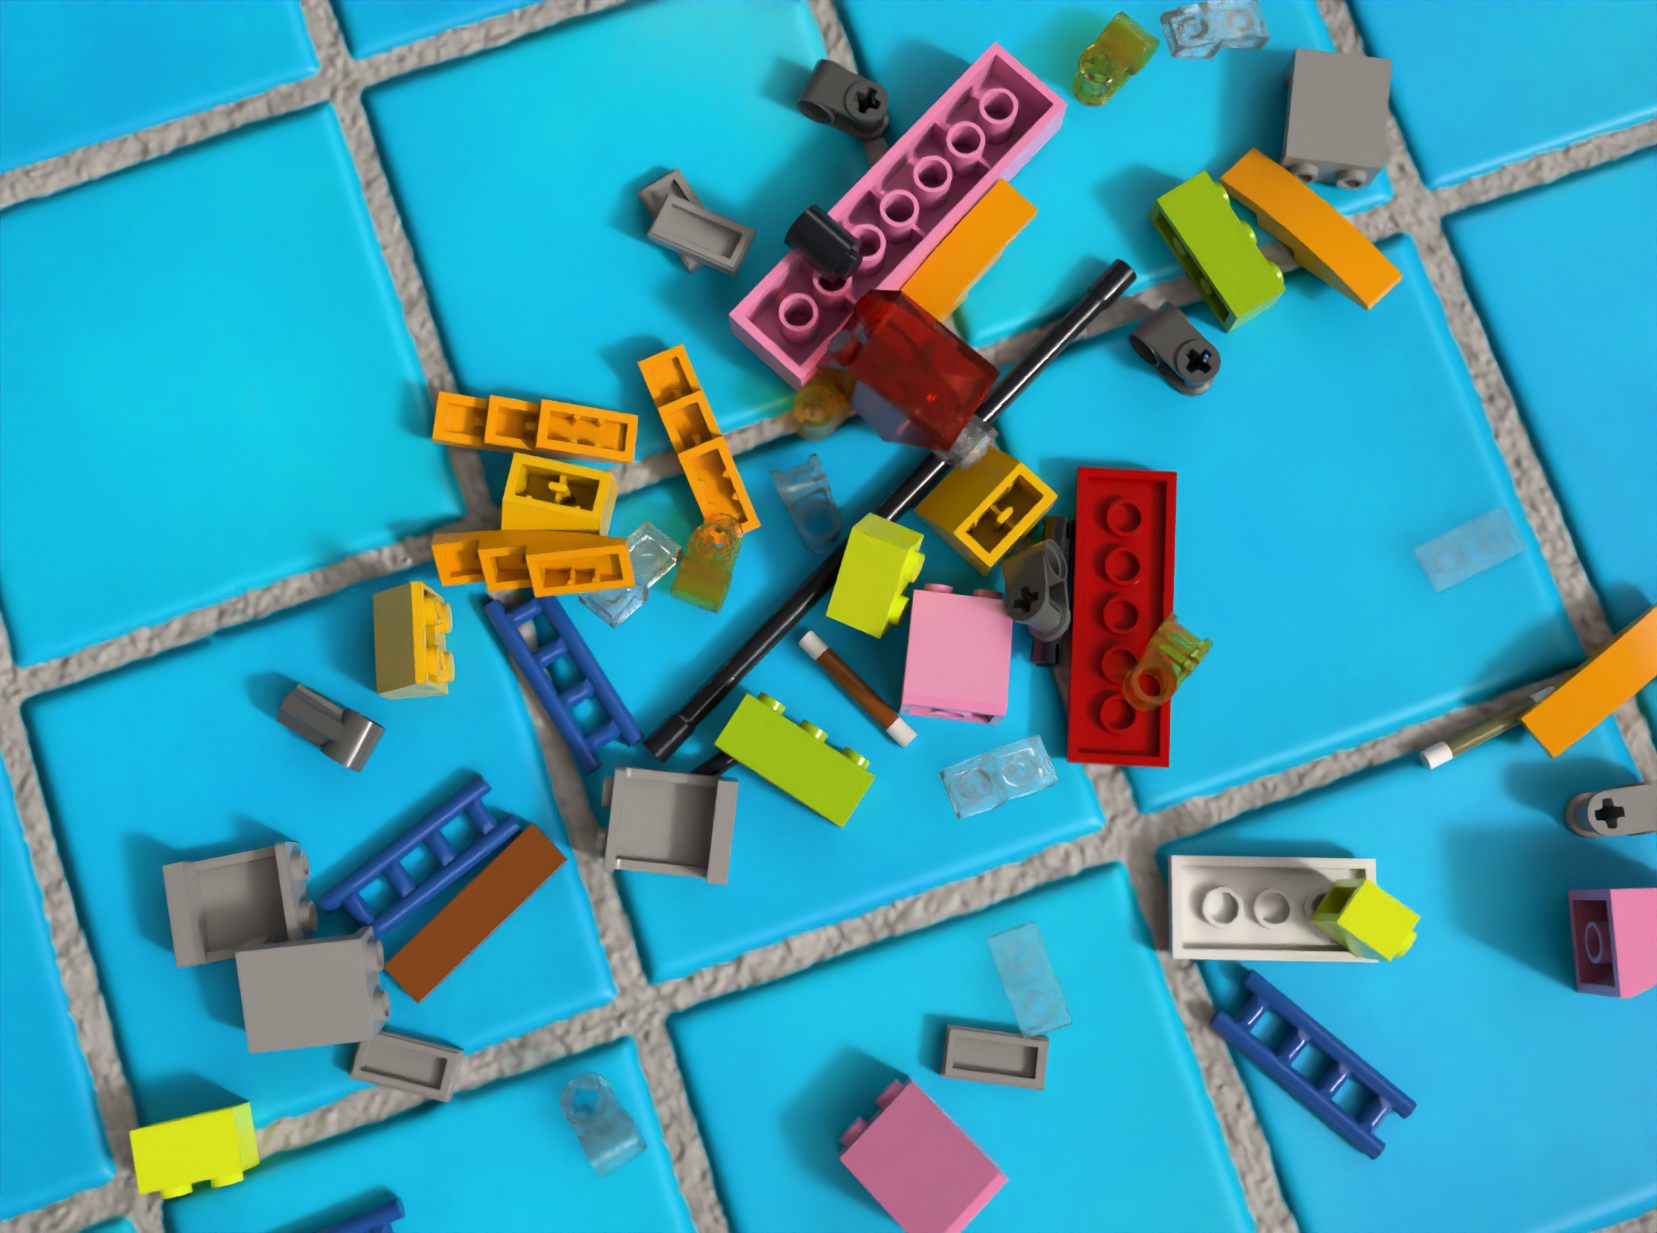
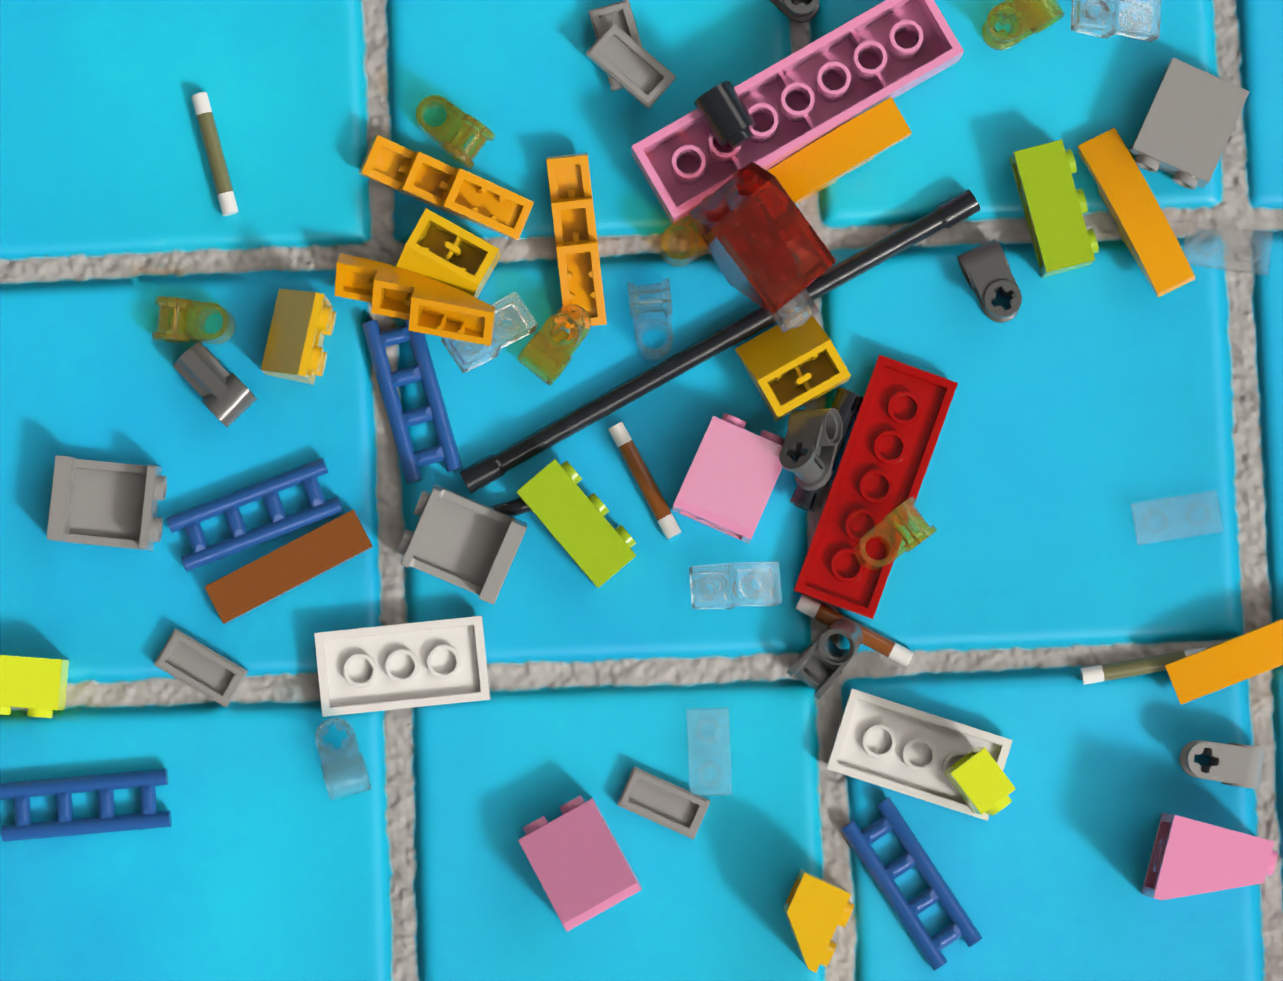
camera: 15 degrees right, 5 degrees up
(263, 470) = (214, 154): none -> olive bar
(278, 665) = (184, 320): none -> clear yellow piece
(312, 991) = (146, 588): light grey panel -> none
(531, 366) = (454, 131): none -> clear yellow piece
(641, 990) = (402, 666): none -> white plate
(875, 575) = (686, 395): neon yellow brick -> none
(1126, 835) = (823, 661): none -> dark grey piece
(1150, 787) = (870, 638): none -> bar
(1222, 1142) = (813, 914): none -> yellow slope
(1425, 239) = (1228, 248): none -> clear slope

